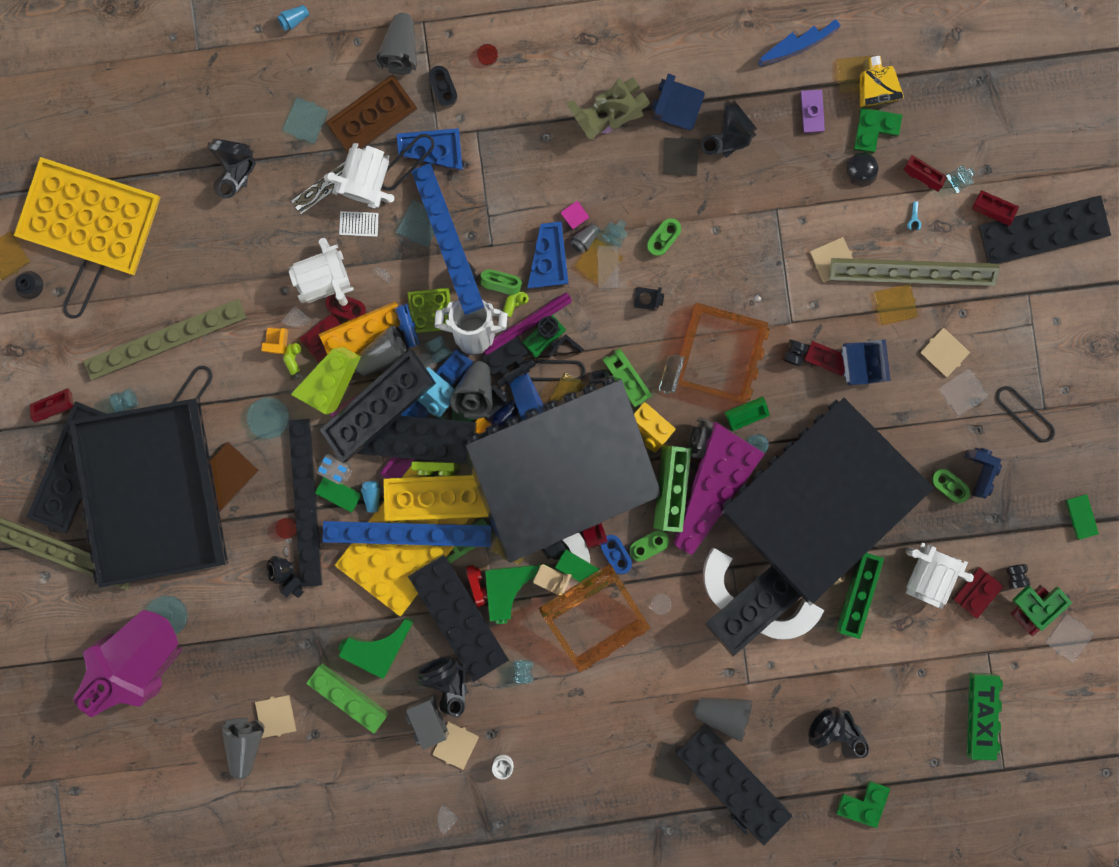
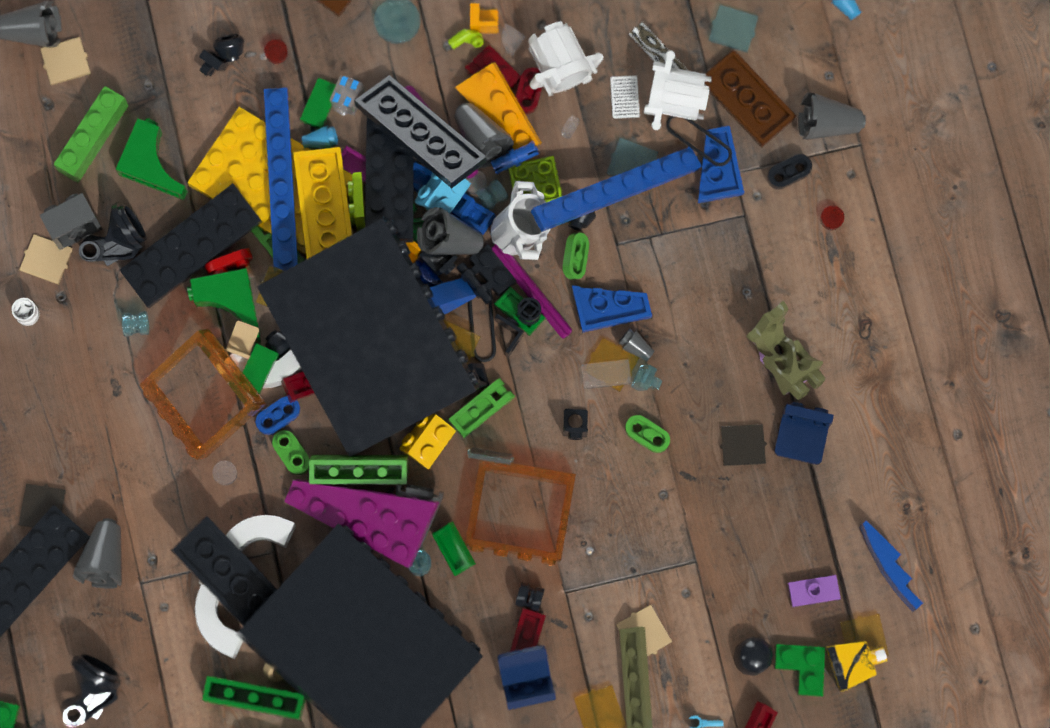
camera: 80 degrees right, 10 degrees down
(305, 502) = (306, 69): black plate -> none
(328, 381) = (444, 77): lime wedge -> none
(514, 301) = (555, 272): lime arm -> none
(575, 215) = (661, 332): dark pink tile -> none
(736, 131) = (778, 502): black piece -> none

